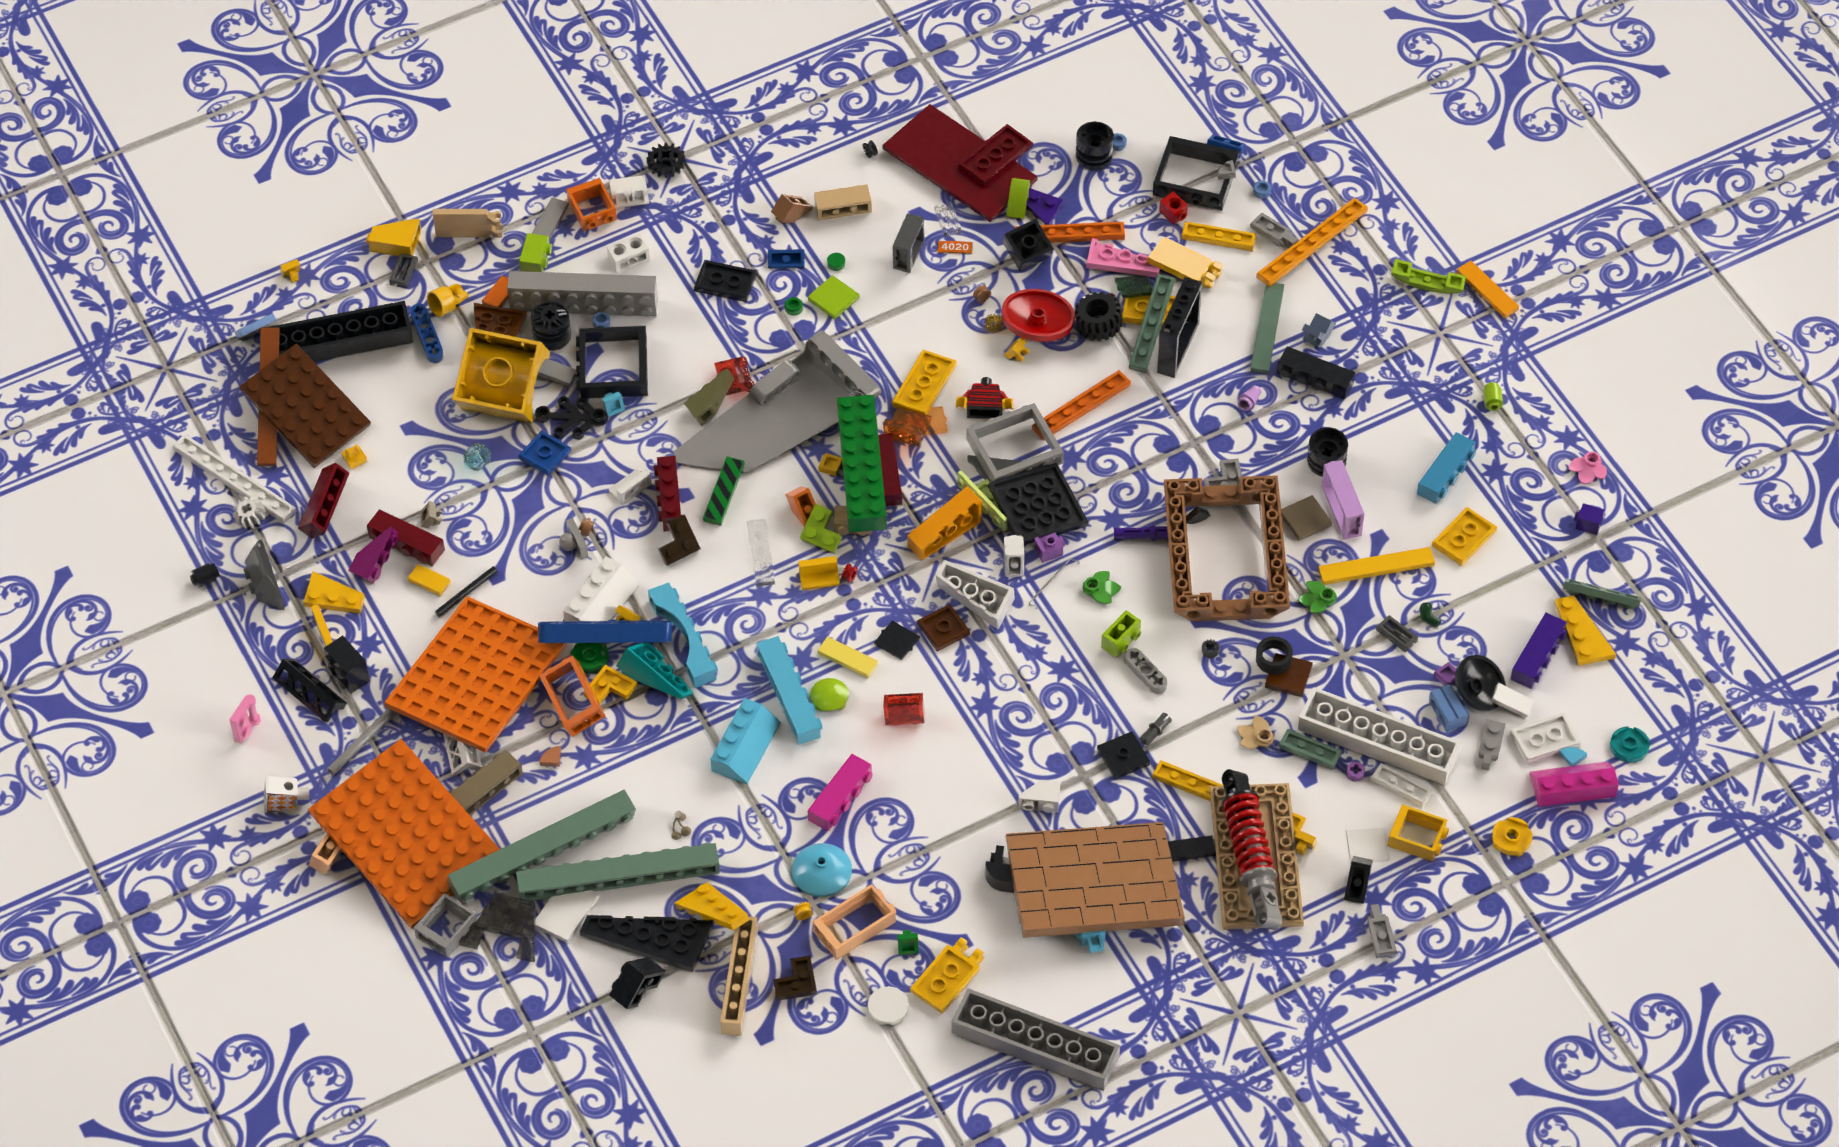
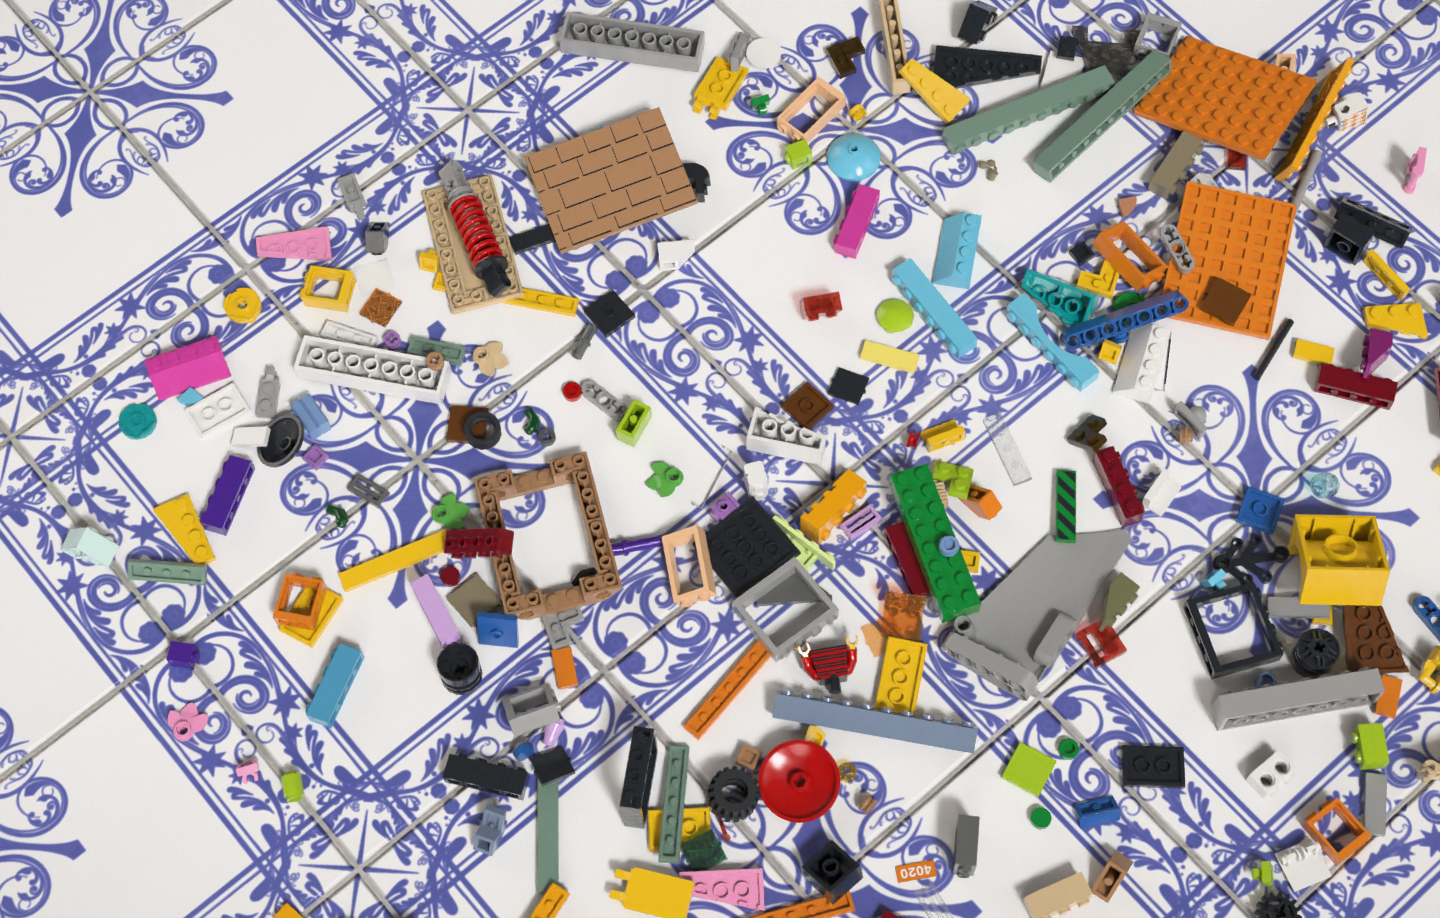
camera: 170 degrees right, 10 degrees up
(293, 817) = (1314, 120): none -> light orange plate
(429, 515) = (1344, 416): dark tan tile -> none
(497, 630) = (1225, 301): none -> reddish brown tile
(521, 692) = (1177, 240): none -> light grey beam
(548, 934) = (1066, 48): none -> black bracket
(617, 719) = (1081, 253): none -> black tile
(665, 188) = (1264, 874): none -> lime tile
(851, 441) = (948, 546): none -> medium blue tile
(882, 875) = (798, 154): none -> lime brick
(914, 522) = (843, 526): none -> lavender tile
(914, 1007) = (739, 51): none -> light grey hinge
(958, 348) = (875, 722): none -> sand blue brick
(1077, 346) = (748, 758): none -> medium nougat plate
(1088, 520) = (680, 538): none -> light nougat window
(1176, 686) = (572, 391): none -> red tile
(1223, 658) = (533, 423): none -> dark green arm
(1229, 445) = (564, 668): none -> orange tile
(1255, 371) = (552, 766): none -> black piece
(1279, 386) = (523, 751): none -> blue tile
(1285, 405) = (535, 717): none -> light grey window
(1288, 476) = (498, 629): none -> blue plate
(1293, 540) = (478, 543): none -> dark red brick
(1310, 718) = (434, 355): none -> medium nougat bush
(1325, 542) = (450, 576): none -> dark red tile
(1364, 810) = (380, 307): none -> clear orange piece
(1439, 889) = (302, 244): none -> bright pink wing
(1476, 520) = (297, 620): none -> orange window
(1533, 417) = (247, 768): none -> bright pink tile
(1682, 621) = (90, 545): none -> light aqua brick

